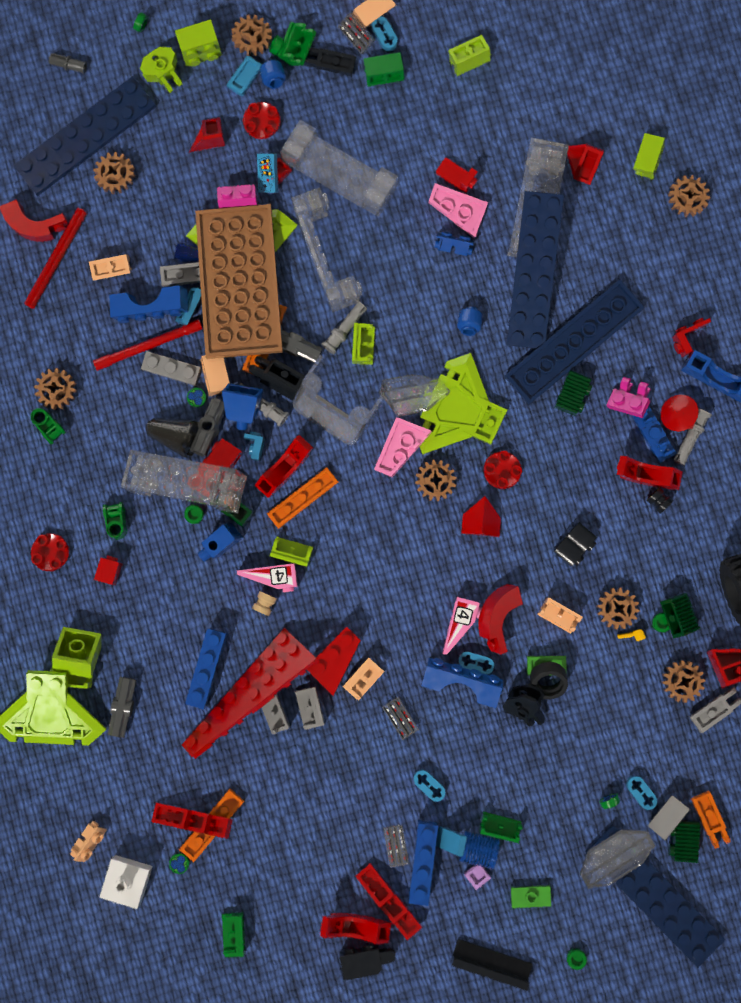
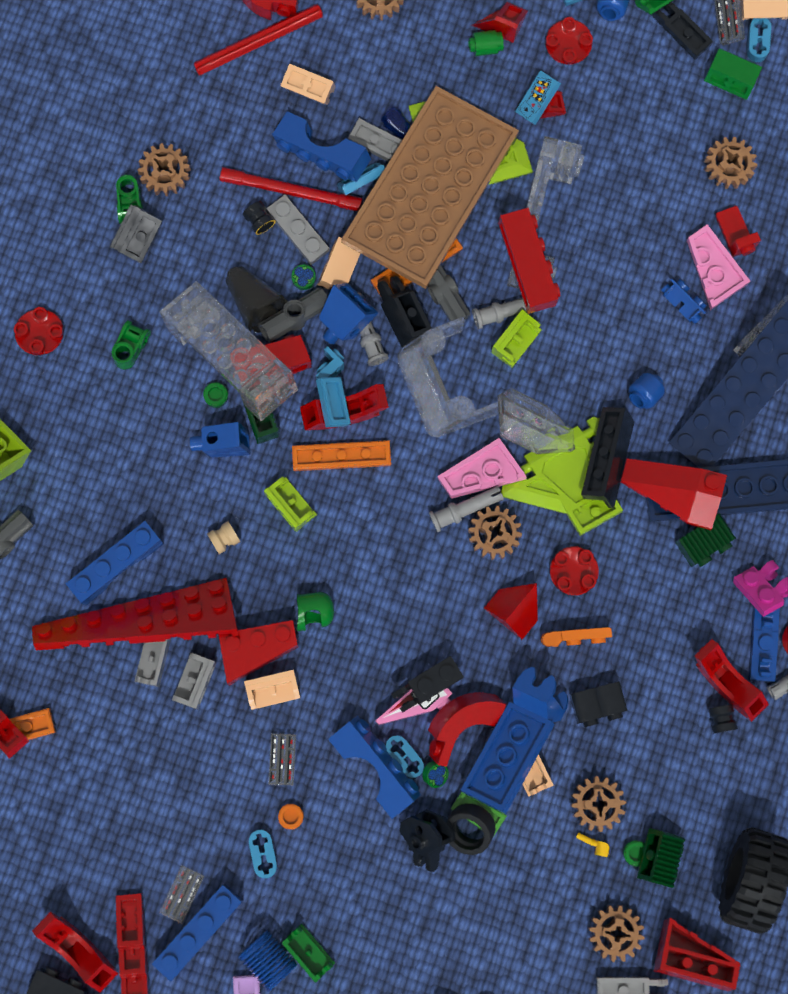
camera: 25 degrees right, 5 degrees down
(67, 443) = (136, 233): none -> plate
(108, 570) = (85, 391): red brick -> none
(140, 378) = (259, 218): none -> black wheel
(207, 158) = (486, 43): none -> green brick
(236, 196) = (489, 99): dark pink brick -> none
(274, 467) = (333, 402): none -> dark azure tile
(279, 576) = (257, 519): slope -> none
(337, 289) = (528, 260): none -> red brick
(338, 170) = (614, 144): clear plate -> none
(354, 608) = (314, 601): none -> green helmet
(401, 485) = (454, 513): none -> light grey pin
(428, 134) = (733, 172): none -> medium nougat gear
(430, 750) = (290, 816): none -> orange tile
(451, 841) = (244, 929): dark azure tile -> none
(461, 606) = (430, 682): none -> black hinge
(474, 381) = (608, 455): none -> black panel
(503, 661) = (435, 775): none -> tile
(530, 513) = (574, 637): none -> orange hinge
(539, 371) = (683, 490): none -> red wedge
(541, 606) = (515, 741): none -> blue hinge

